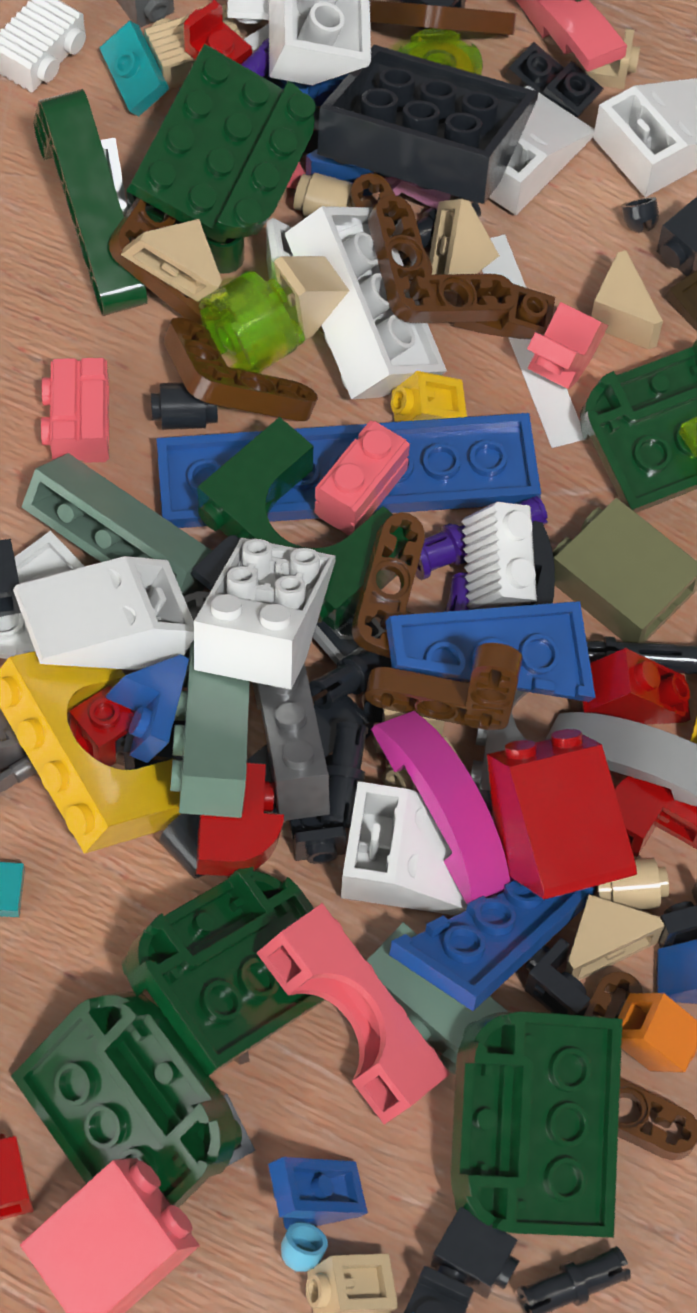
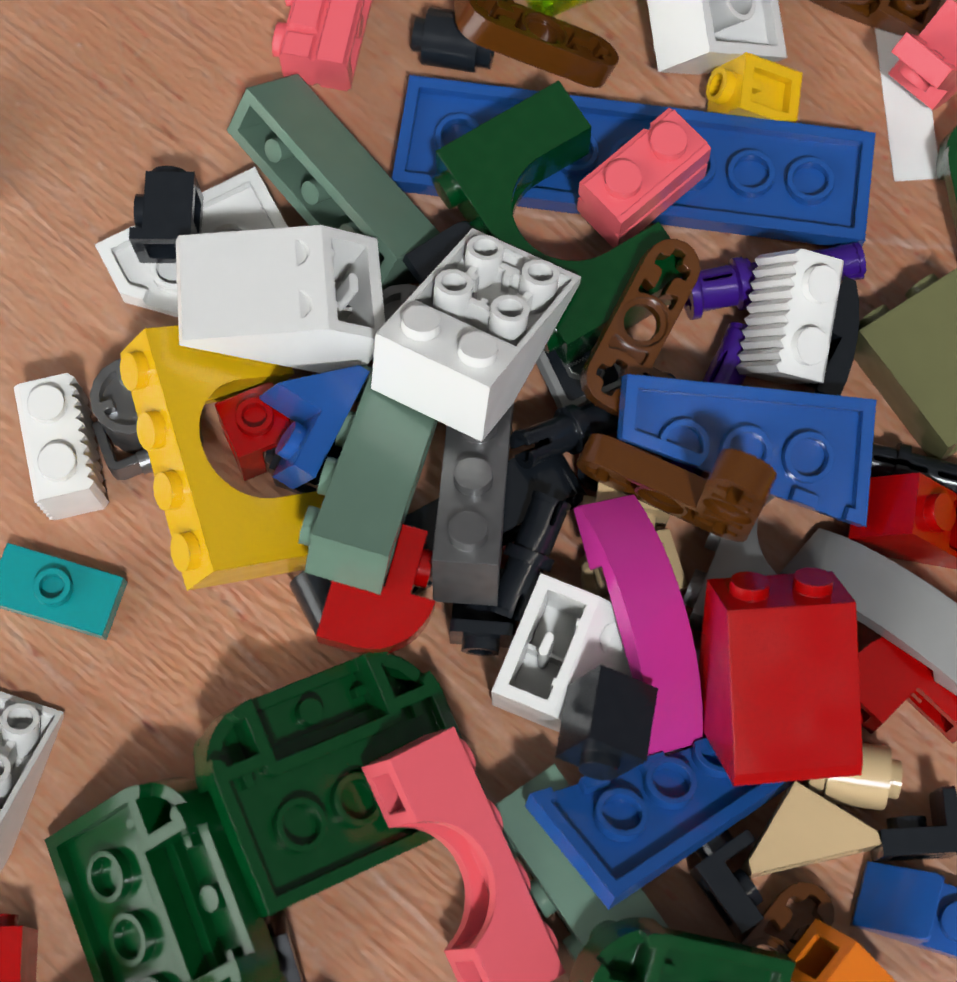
camera: 20 degrees right, 10 degrees up
(437, 875) = (606, 723): none -> black brick

